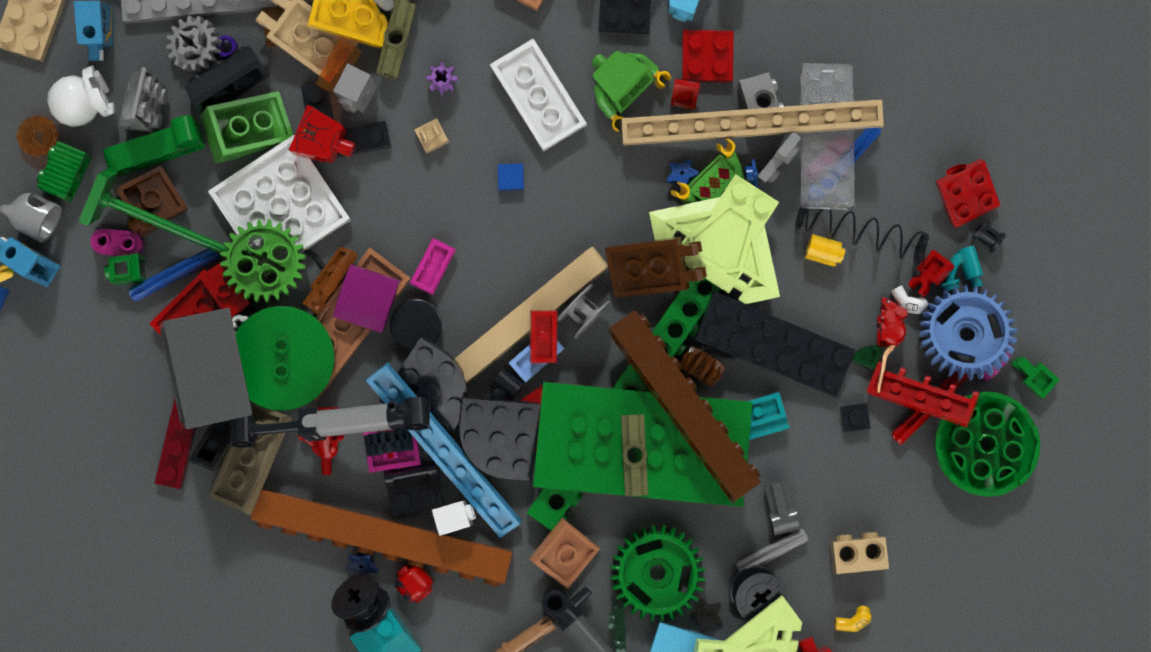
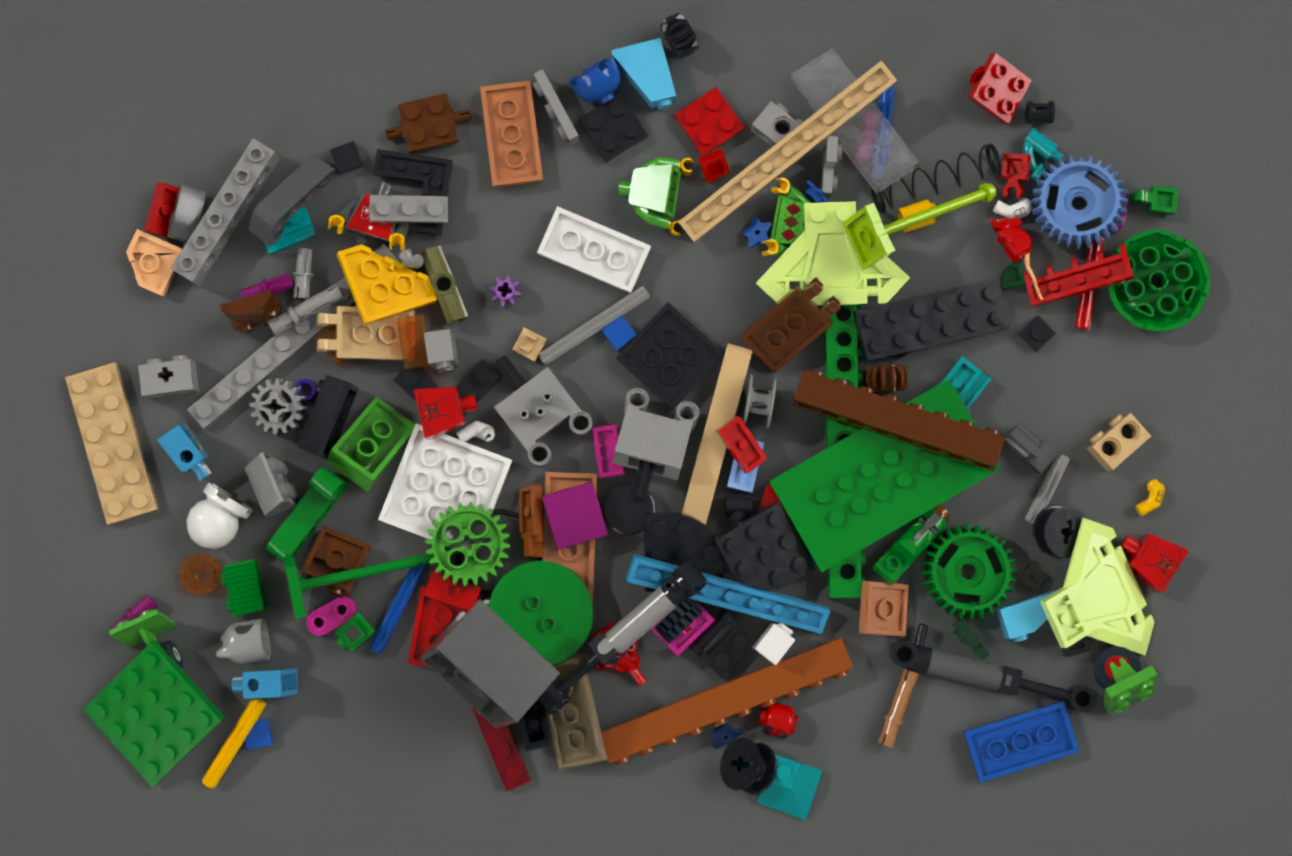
camera: 40 degrees left, 0 degrees up
(339, 174) = (477, 429): none -> white arm
(399, 192) = (537, 408): none -> light grey piece
(472, 282) = (652, 441): none -> light grey piece
(494, 156) = (593, 325): none -> light grey axle
(538, 224) = (670, 356): none -> black plate
(625, 517) = (911, 544): none -> green plate
(634, 473) = (898, 502): olive piece -> none
(768, 239) = (871, 238): none -> lime tile

